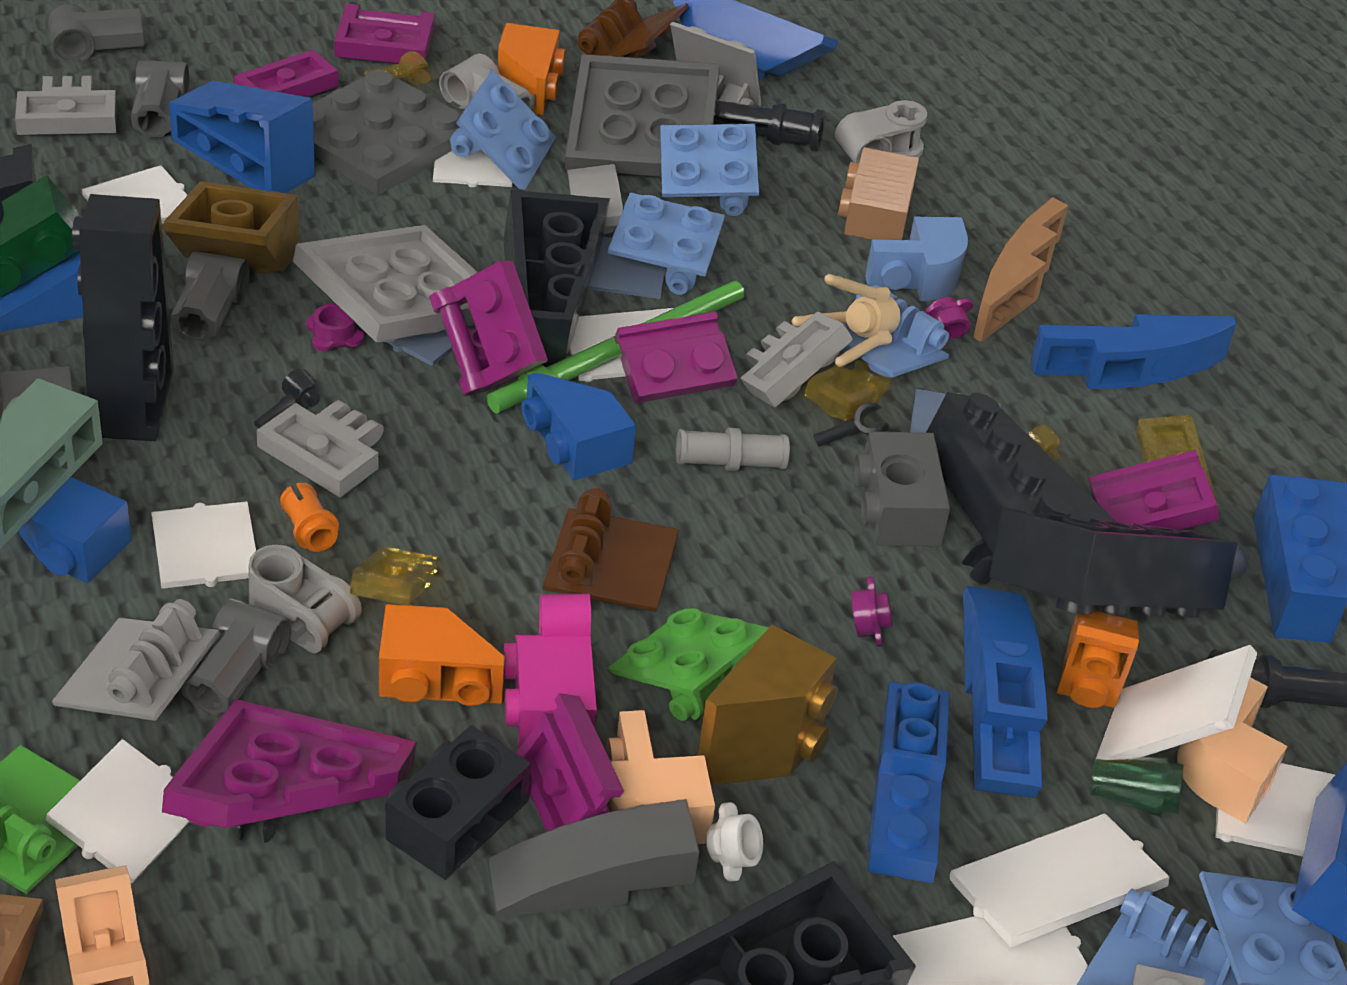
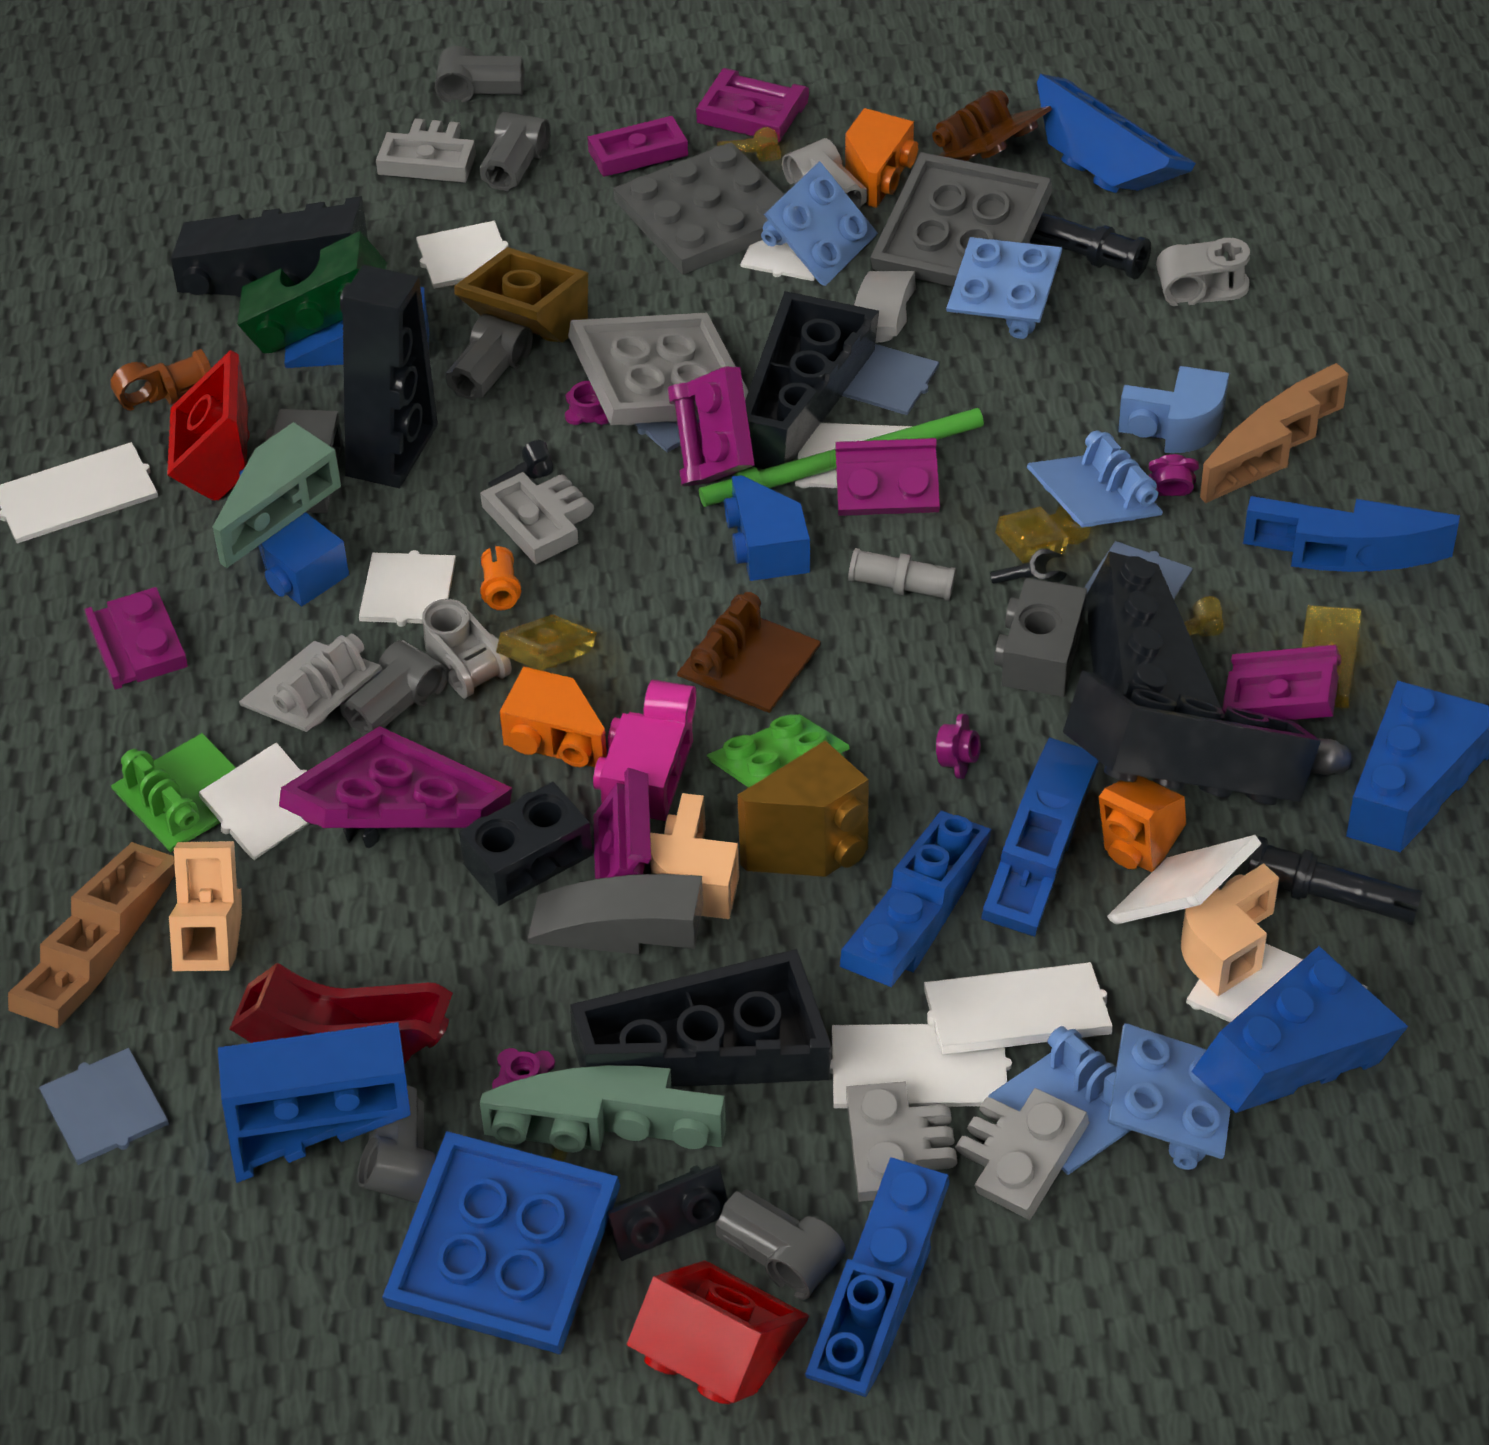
camera: 25 degrees right, 5 degrees up
(248, 133) = (576, 201): blue wedge -> none
(667, 237) = (928, 355): medium blue hinge -> none
(734, 841) = (742, 920): white plate -> none
(736, 62) = (1071, 192): light grey hinge -> none
(793, 357) = (994, 495): light grey hinge -> none
(869, 316) = (1084, 463): tan plant -> none
(878, 195) = (1167, 336): medium nougat brick -> none
(1141, 783) = (1133, 942): clear green cone -> none

